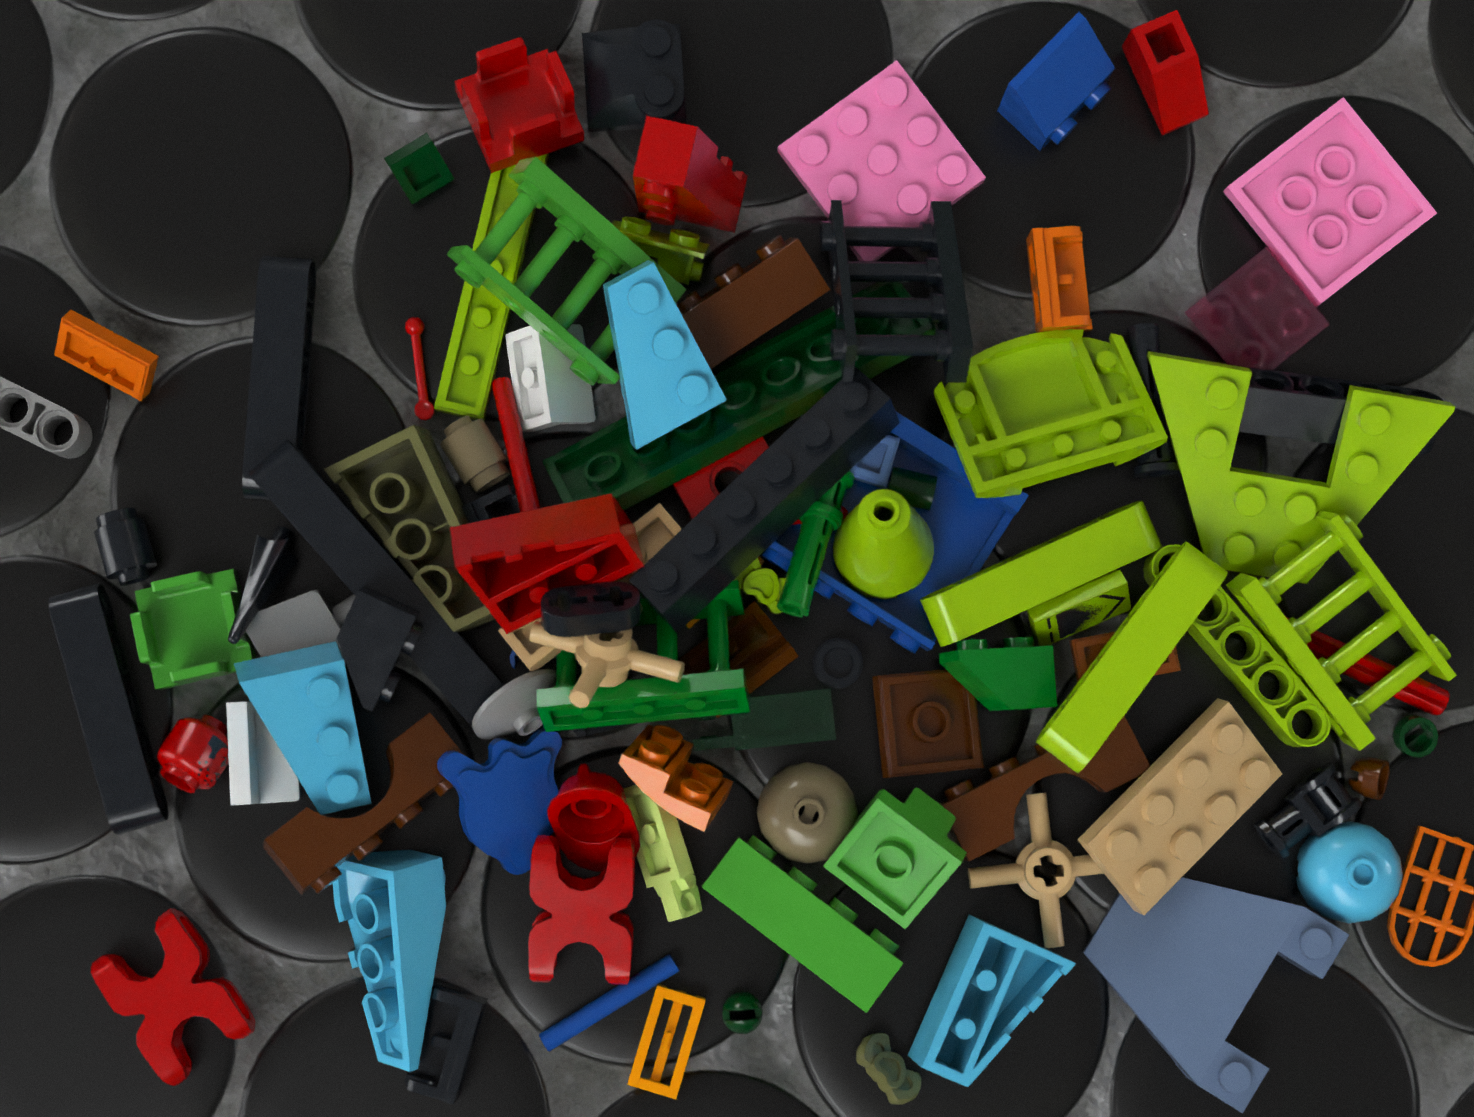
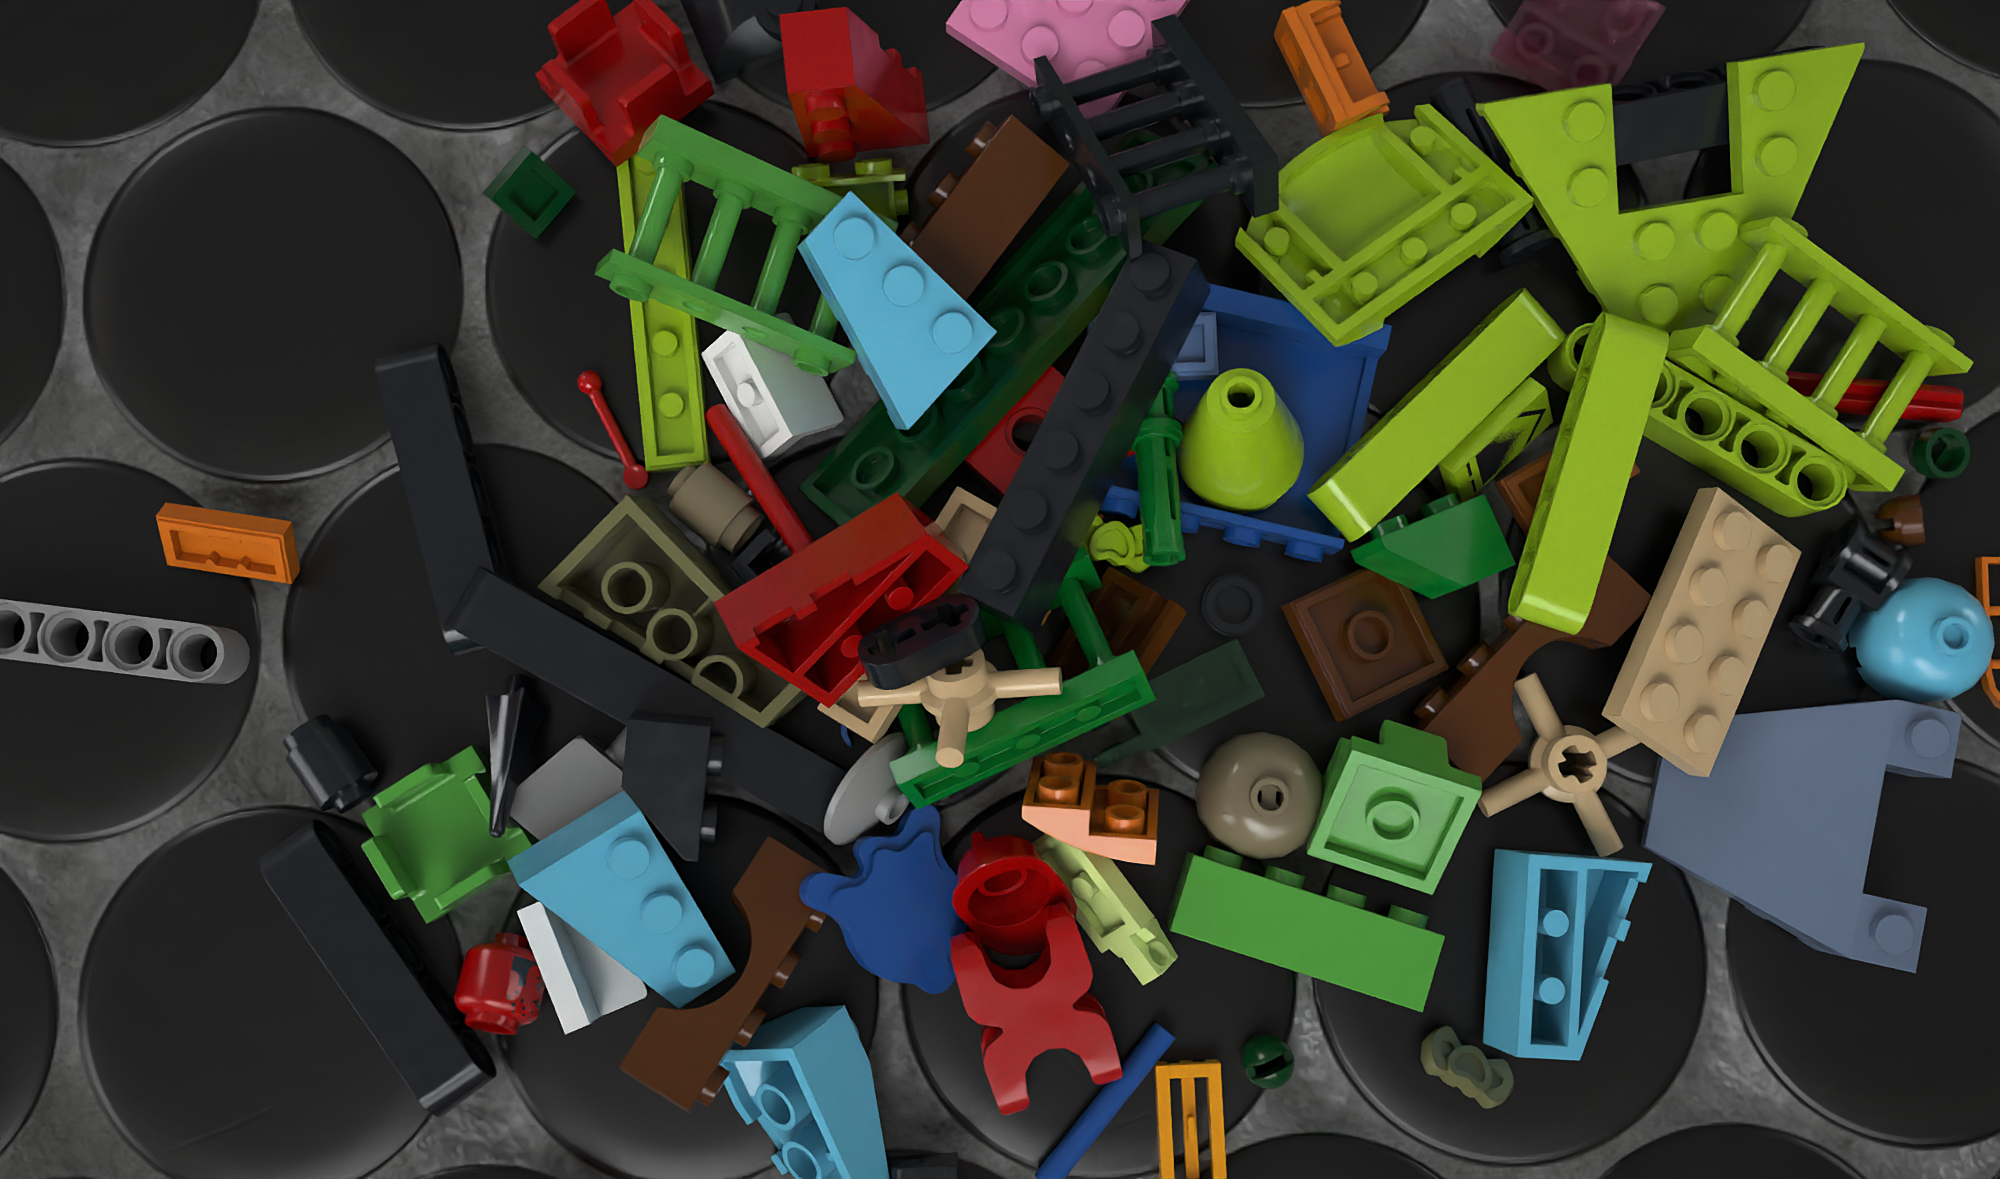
camera: 20 degrees left, 0 degrees up
(914, 487) = (1259, 358): dark green hinge -> none

